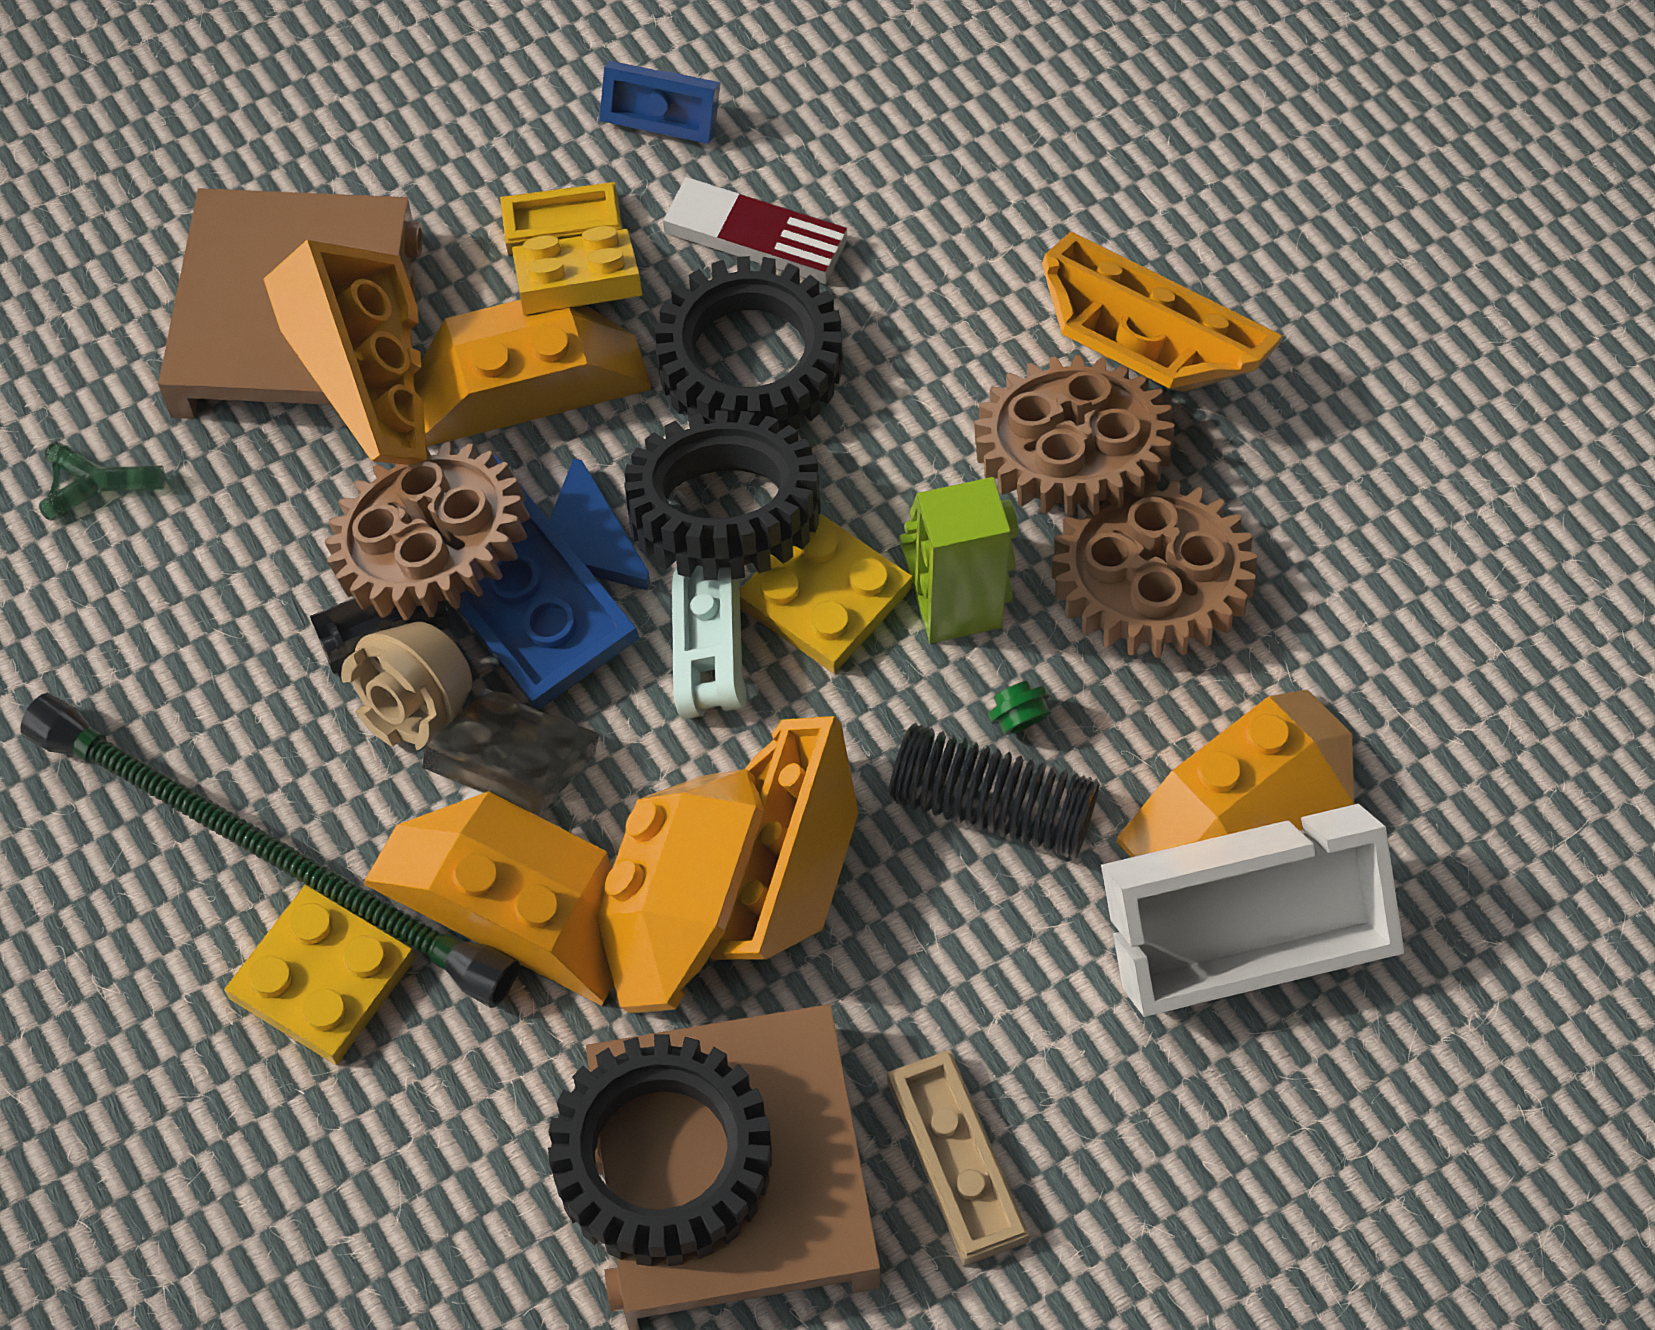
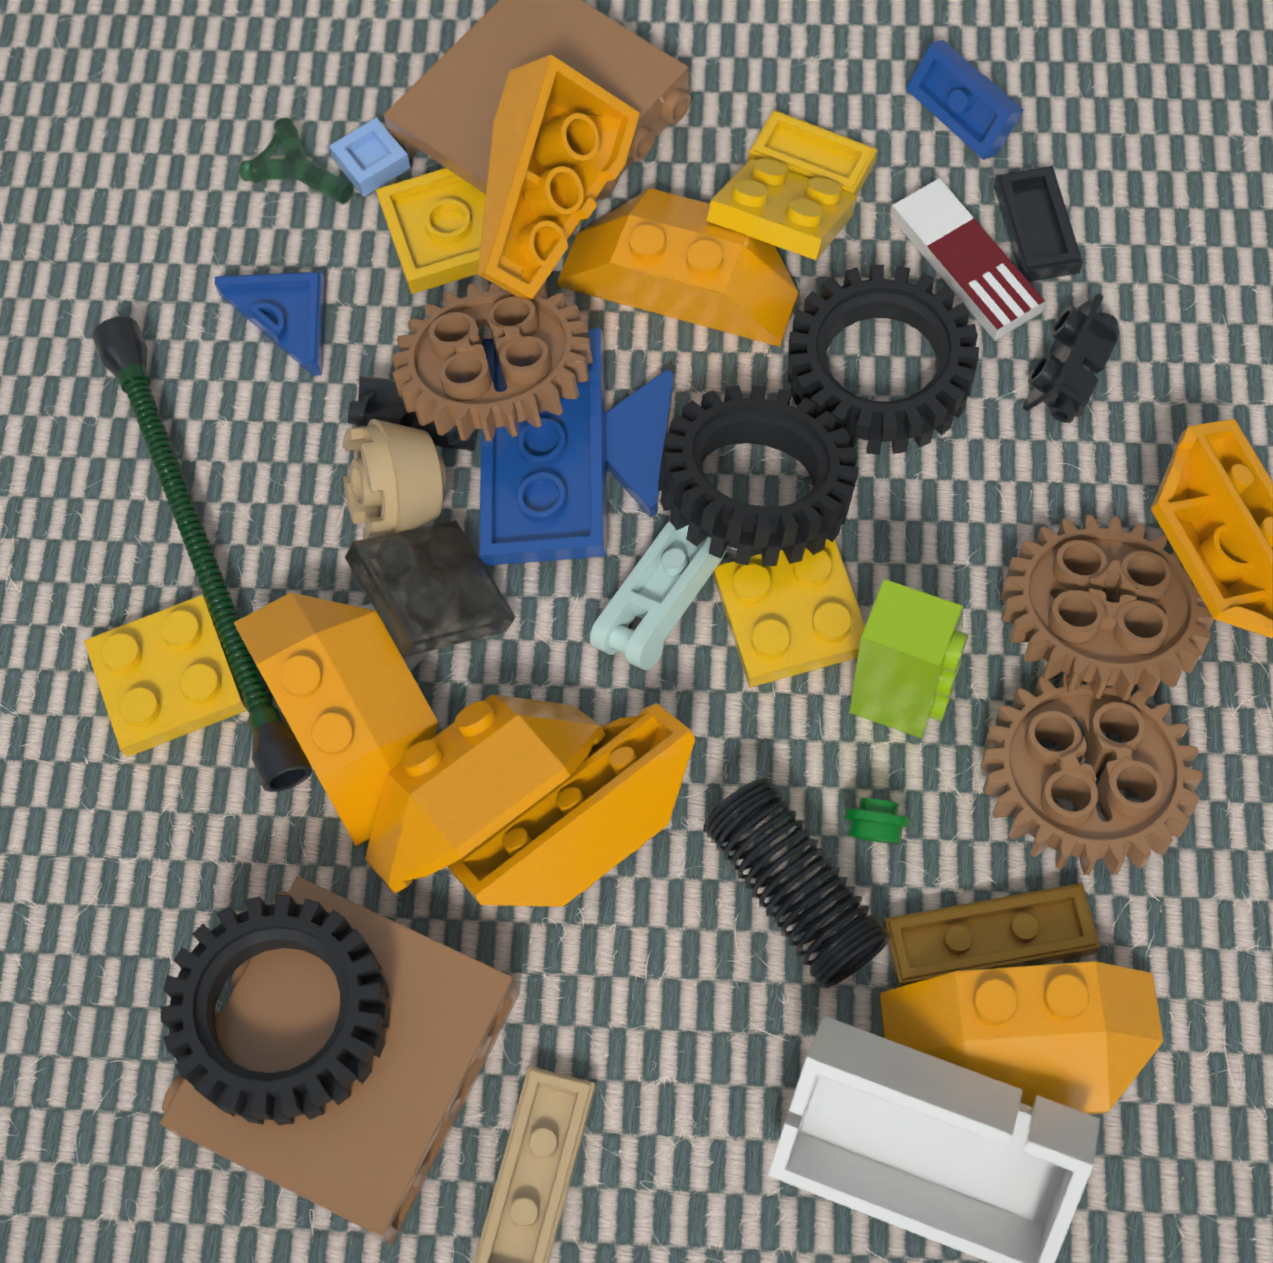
camera: 40 degrees right, 5 degrees up
(162, 432) = (369, 156): none -> light blue plate
(180, 607) = (284, 308): none -> blue tile
(281, 455) = (434, 227): none -> yellow plate
(791, 170) = (1038, 224): none -> black tile
(896, 243) = (1058, 376): none -> black hinge
(1167, 736) = (992, 934): none -> pearl gold tile

